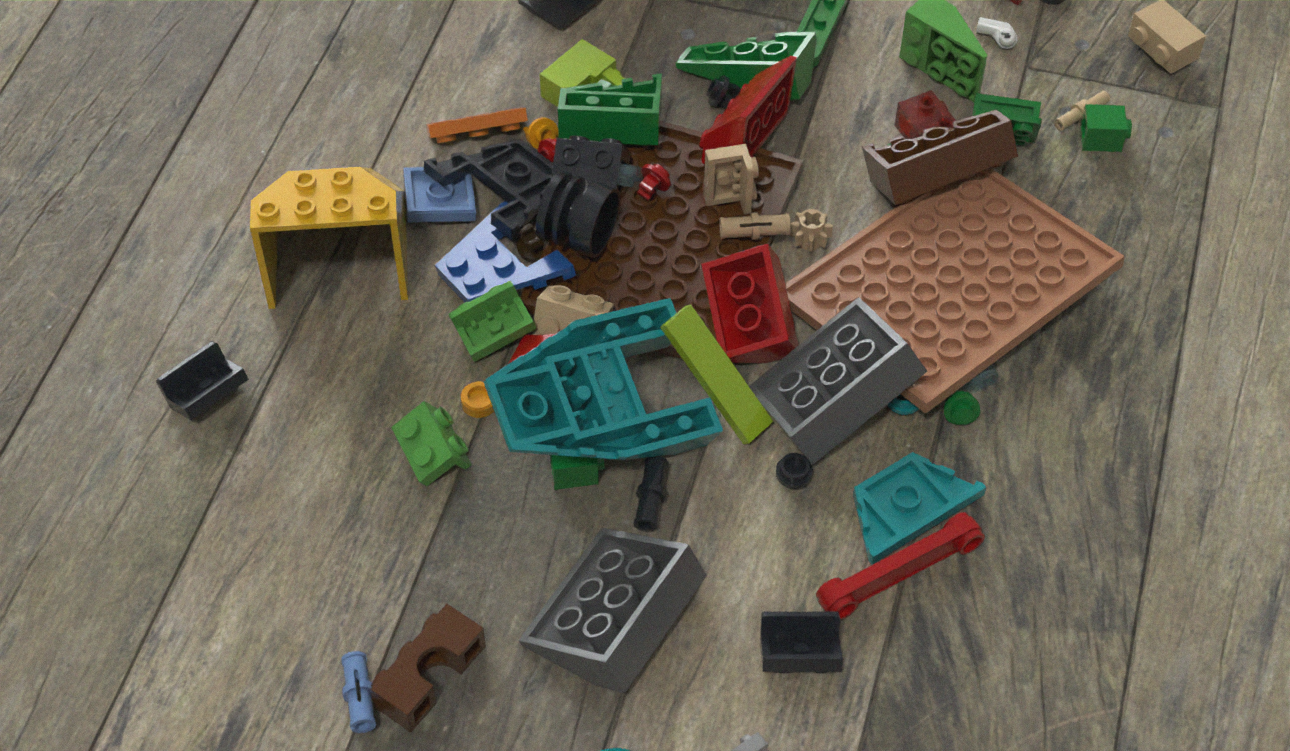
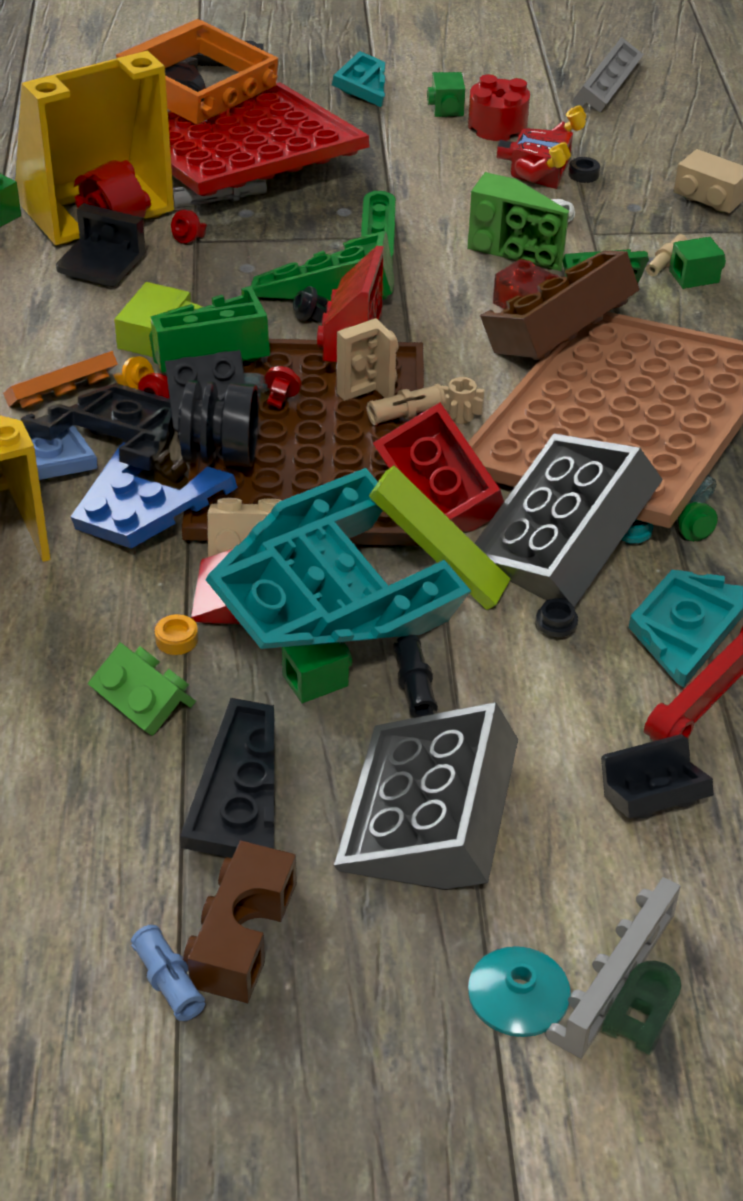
camera: 20 degrees left, 10 degrees down
(470, 552) = (236, 785): none -> black wing
(492, 320) = (161, 550): bright green bracket -> none

